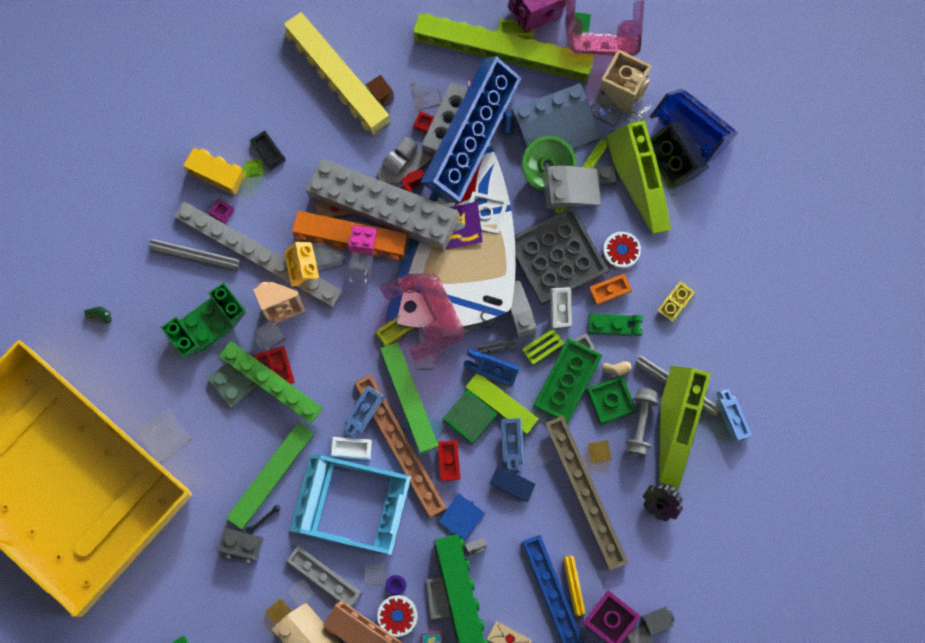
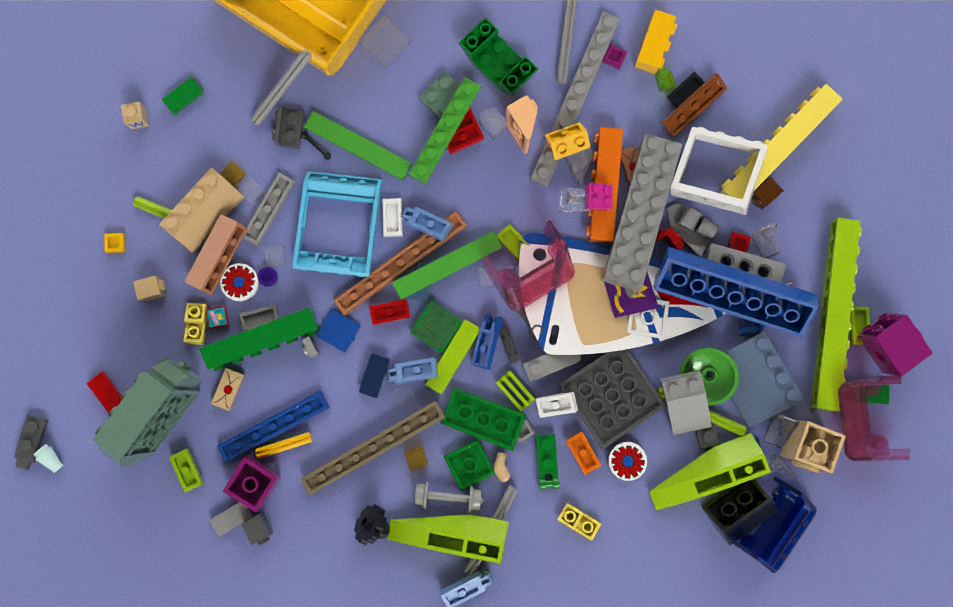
camera: 80 degrees right, 10 degrees up
(197, 544) = (280, 88): none -> light grey axle
(283, 144) = (694, 105): none -> dark orange tile
(377, 140) = (712, 198): none -> white window

